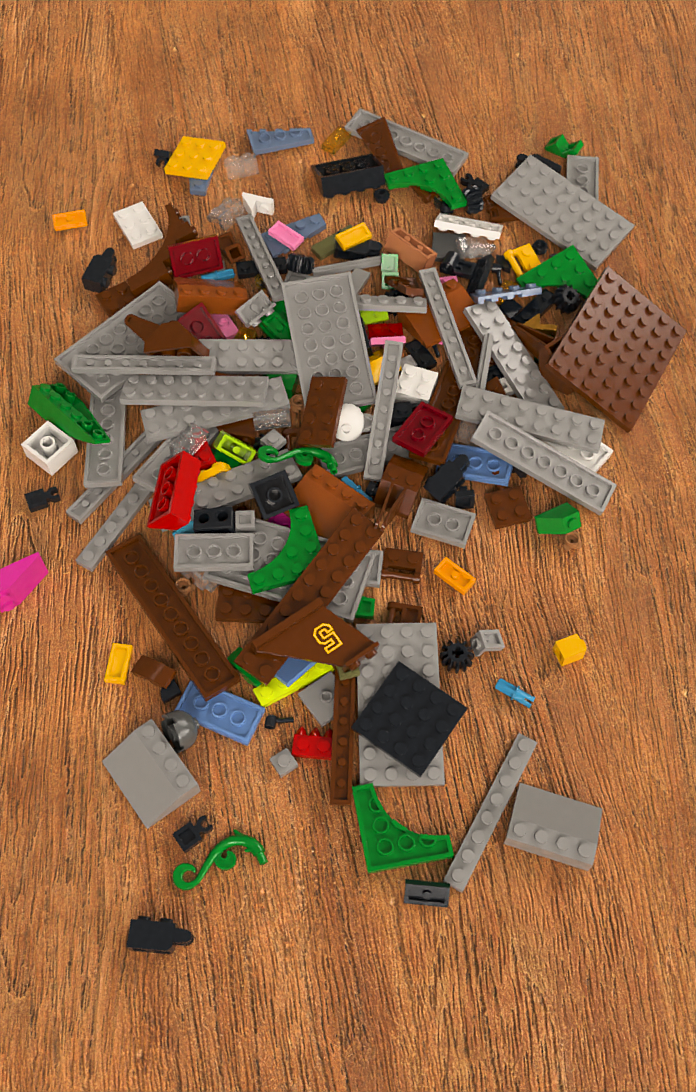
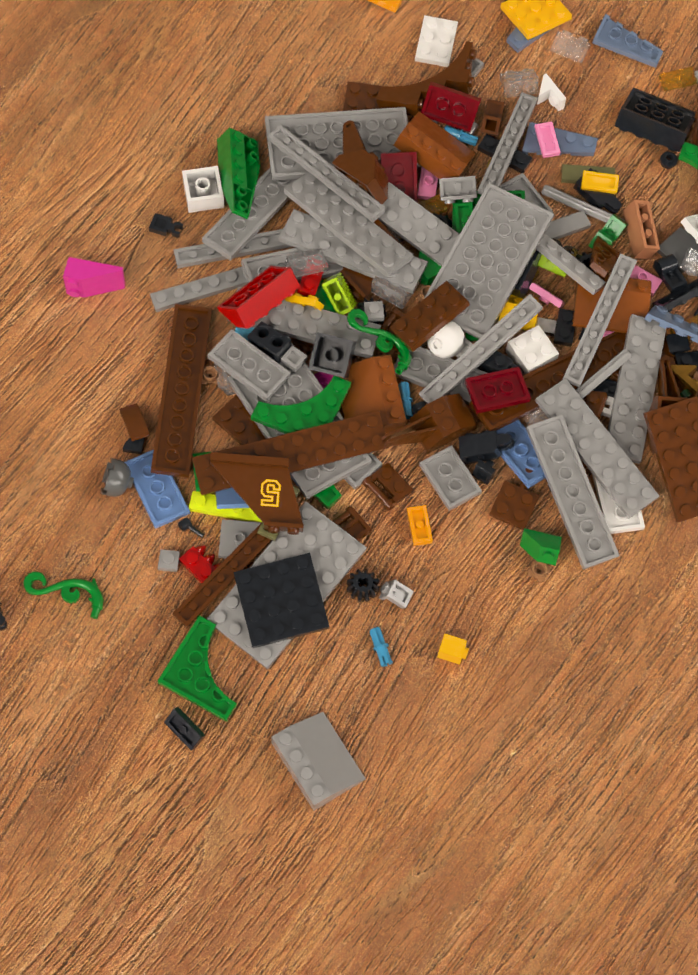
camera: 35 degrees right, 5 degrees up
(100, 271) = (369, 63): black hinge -> none
(118, 663) = (116, 396): yellow tile -> none
(150, 774) = (71, 493): light grey slope -> none
(189, 835) = (60, 557): black plate -> none
(300, 263) = (536, 173): black gear -> none
(385, 330) = (555, 285): red plate -> none
(489, 813) = (283, 713): light grey plate -> none

